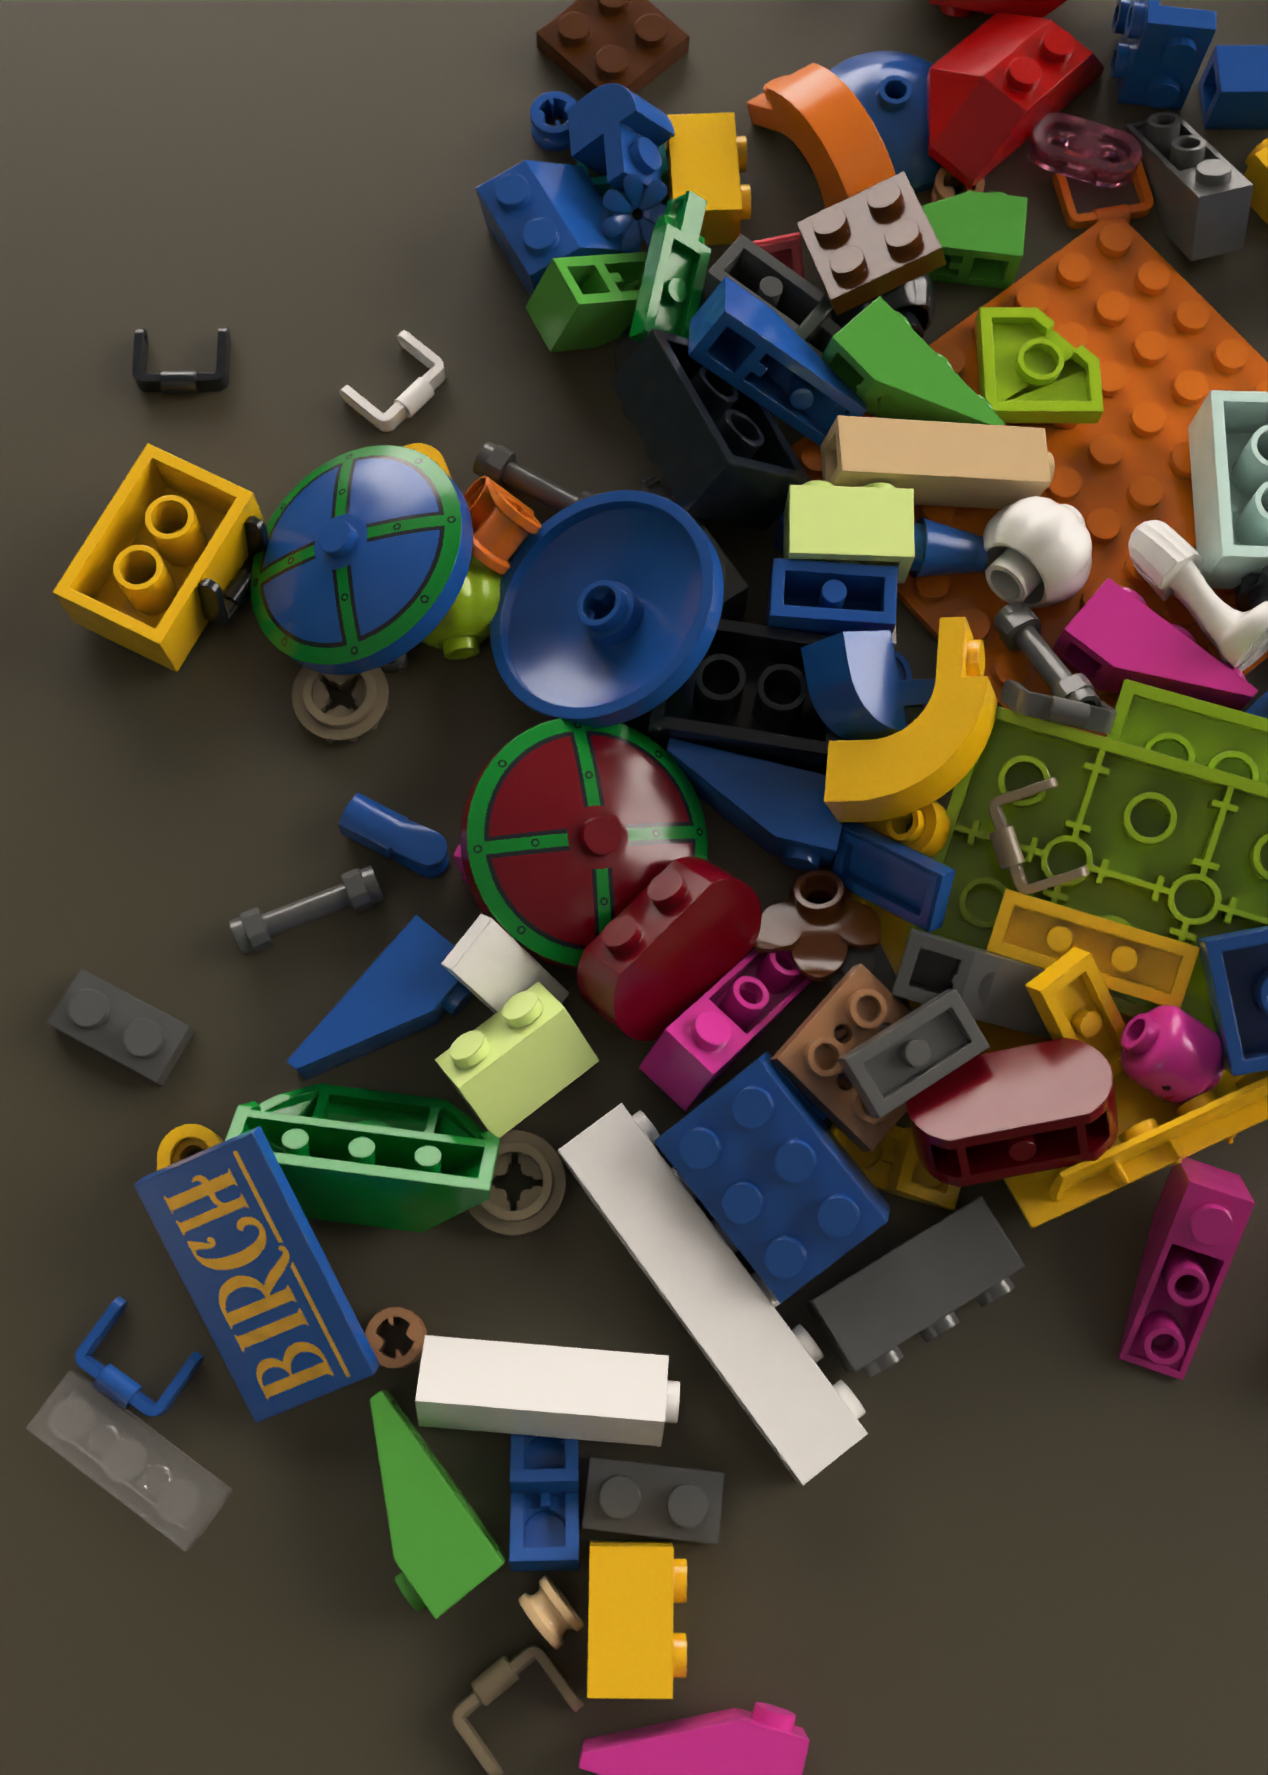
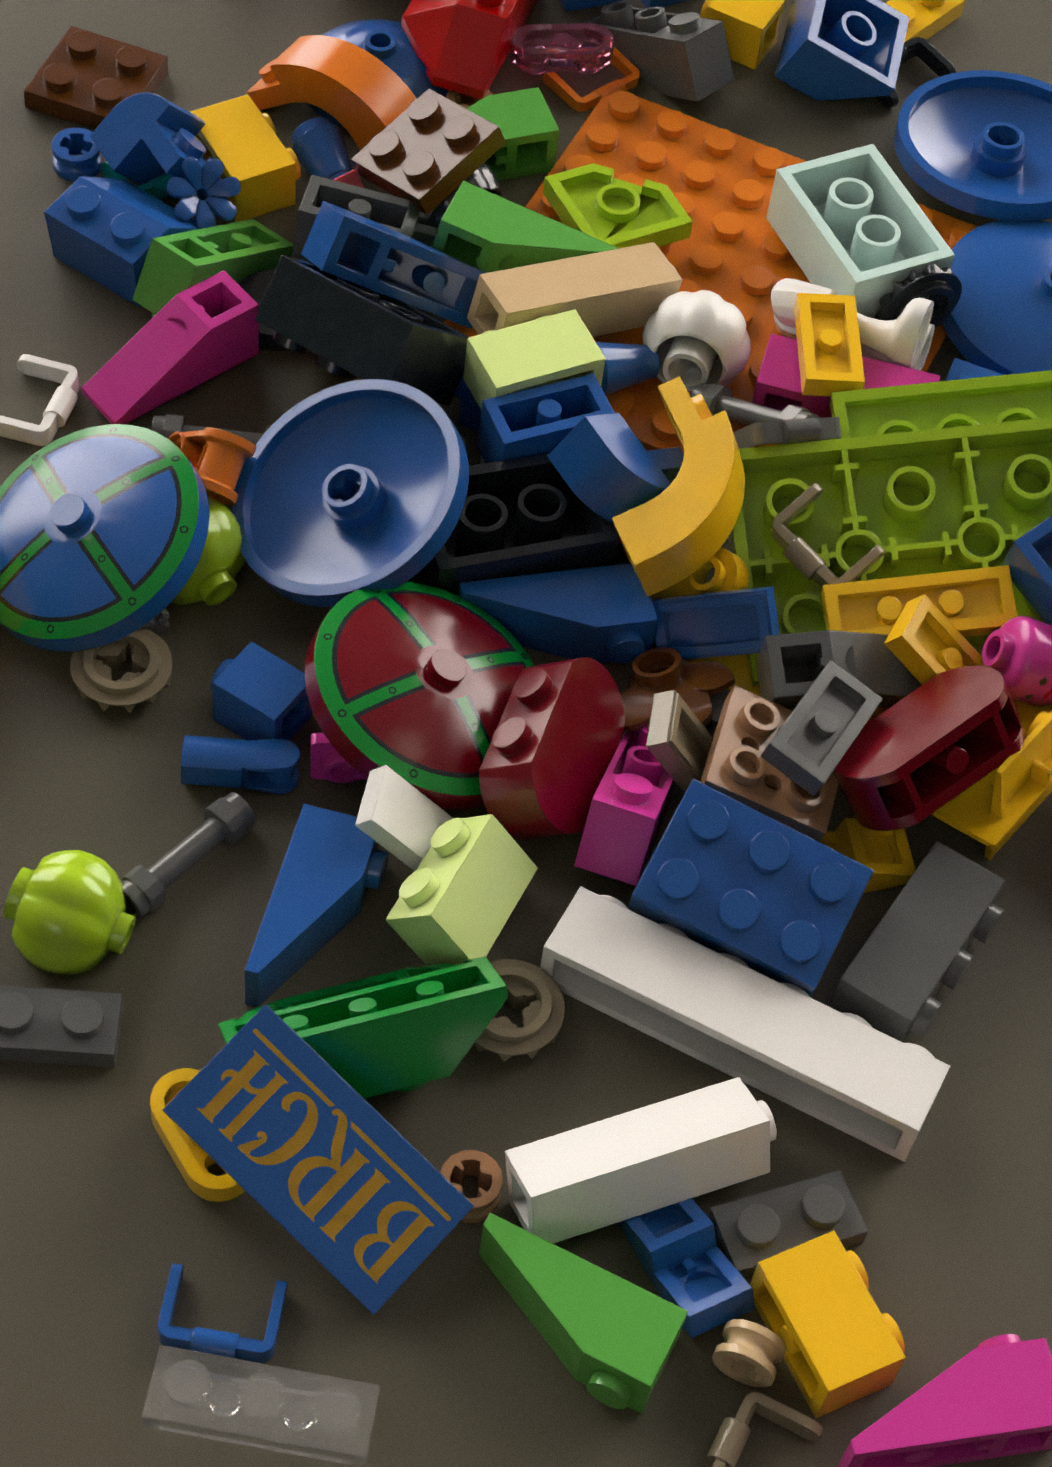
camera: 30 degrees left, 20 degrees down
(178, 929) = (68, 912): none -> lime plant
(438, 777) = (260, 695): none -> blue brick
(537, 380) = (178, 349): none -> dark pink slope
(673, 270) = (261, 220): green hinge -> none
(784, 196) = (321, 148): none -> blue cone
(784, 993) = (678, 738): none -> dark tan tile
(1154, 620) = (828, 344): none -> yellow plate

